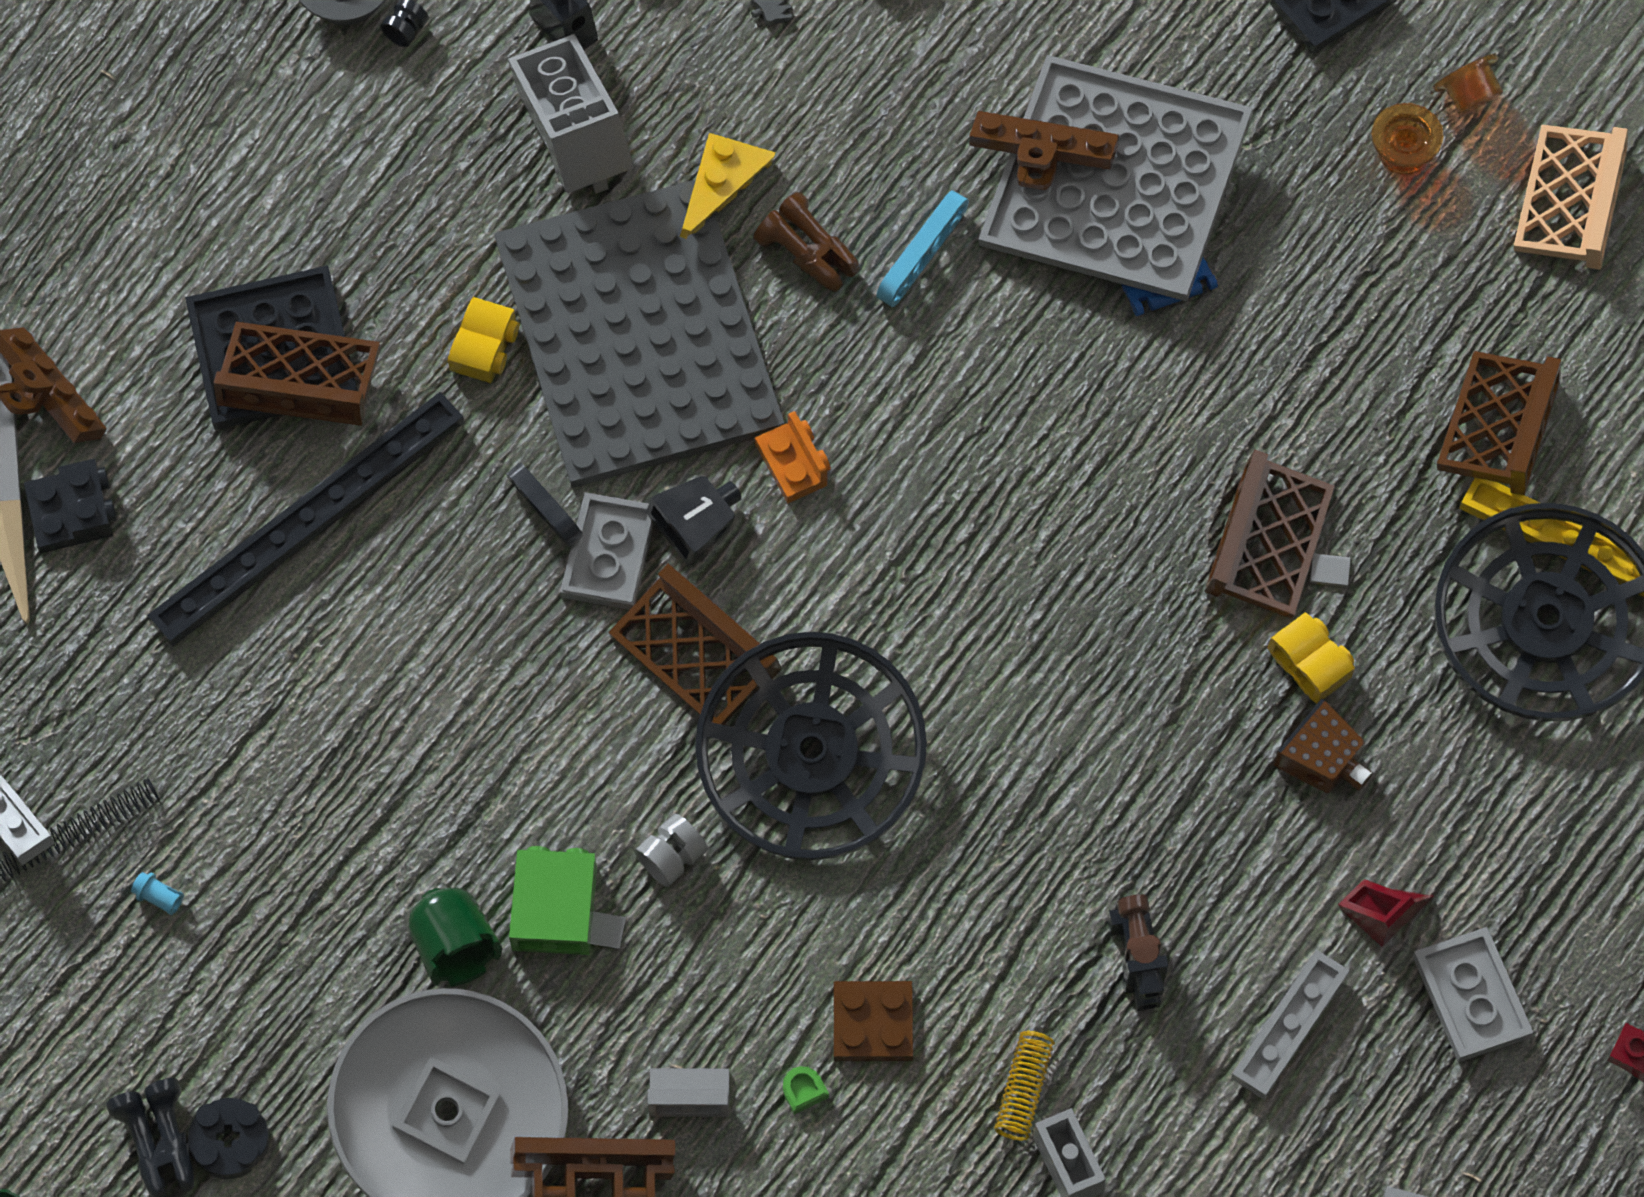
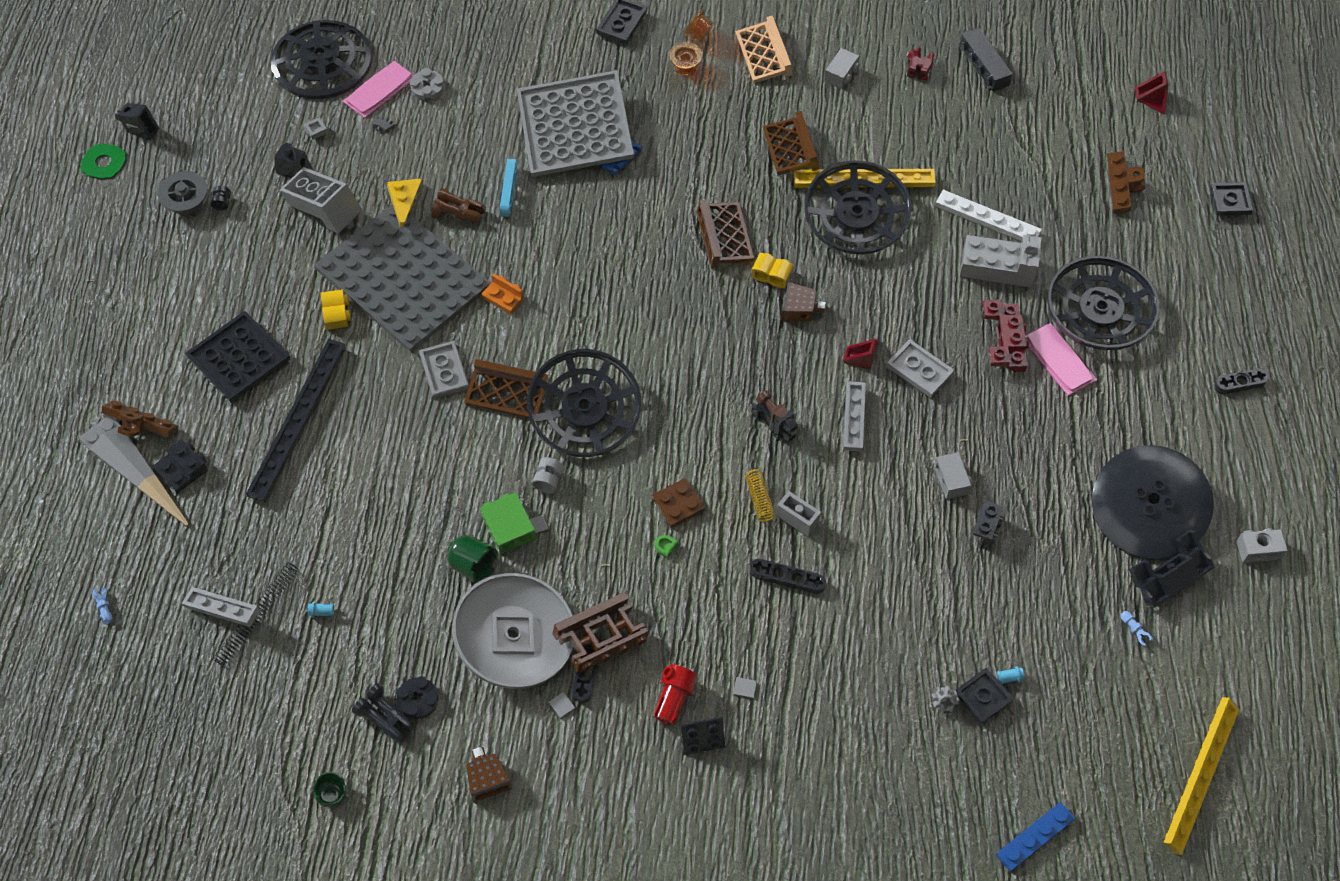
camera: 30 degrees left, 5 degrees down
(291, 394) = (261, 368): reddish brown fence -> none
(544, 504) = (404, 362): black beam -> none
(688, 1092) = (616, 572): light grey panel -> none
(694, 515) = (474, 336): black torso -> none
(1042, 145) = (537, 123): reddish brown plate -> none
(1330, 570) = (757, 235): light grey piece -> none

